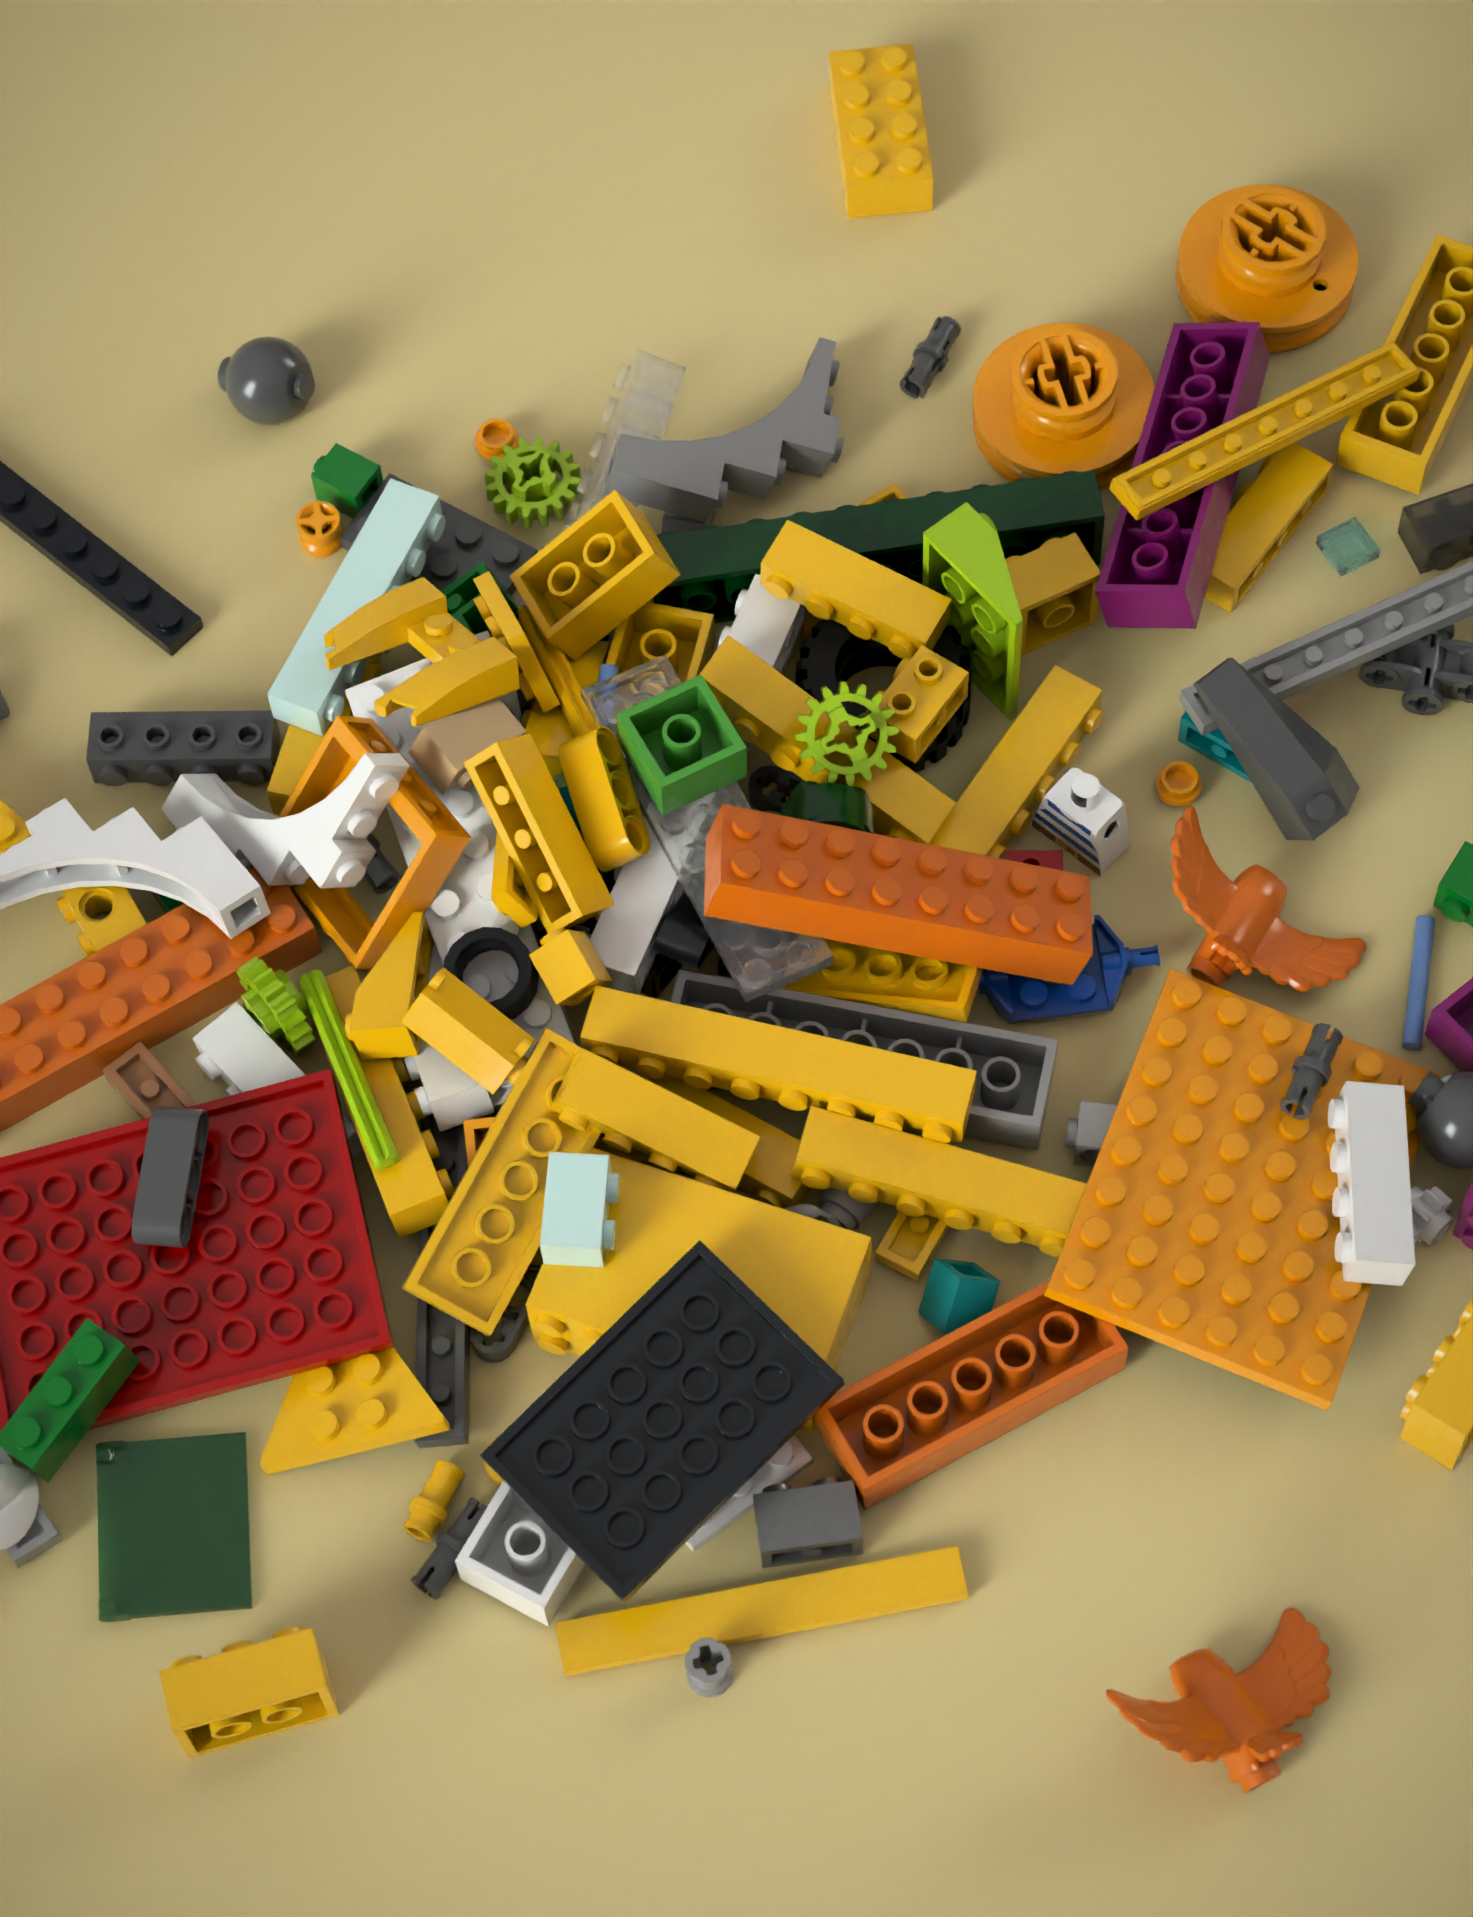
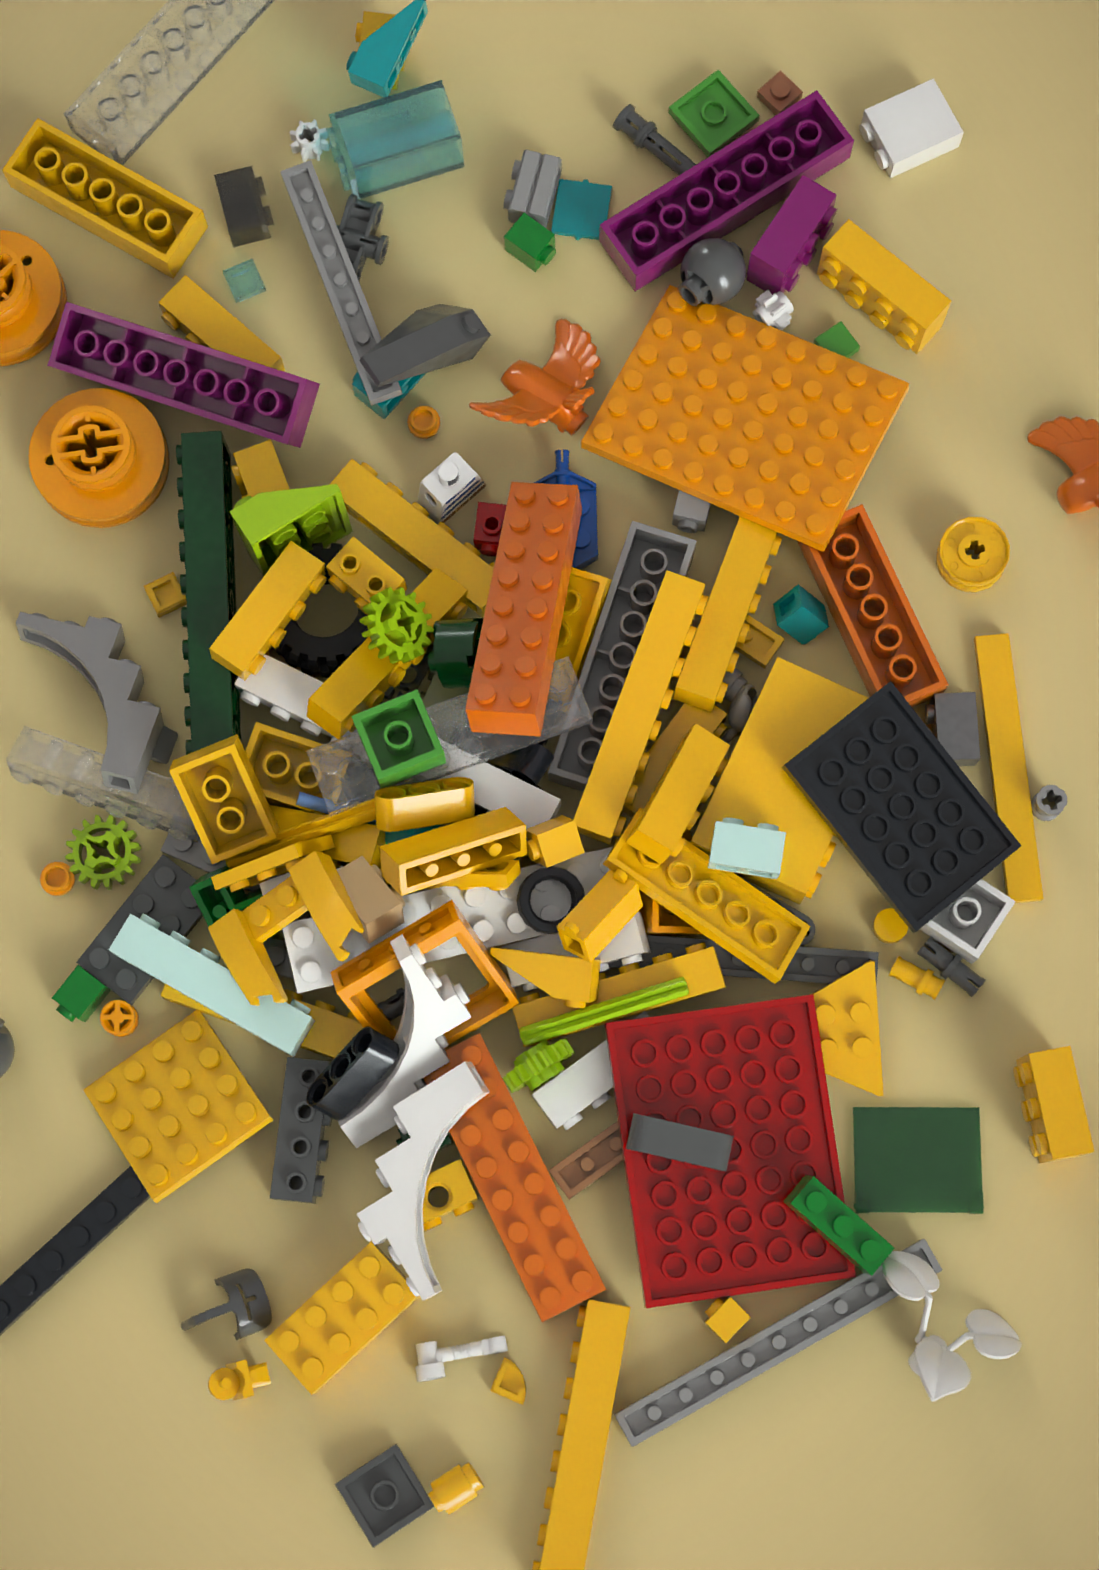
camera: 85 degrees left, 15 degrees up
(206, 602) = (177, 1105): none -> yellow plate
(247, 773) = (352, 1073): none -> black beam
(930, 357) = (35, 548): dark grey pin -> none
(1062, 1547) = (986, 540): none -> yellow wheel
(1263, 430) = (170, 309): yellow tile -> none
(1311, 1071) = (672, 359): dark grey pin -> none
(1372, 1183) = (761, 332): white brick -> none
(1392, 1317) = (838, 340): none -> bright green tile
(1418, 983) = (595, 289): medium blue bar -> none

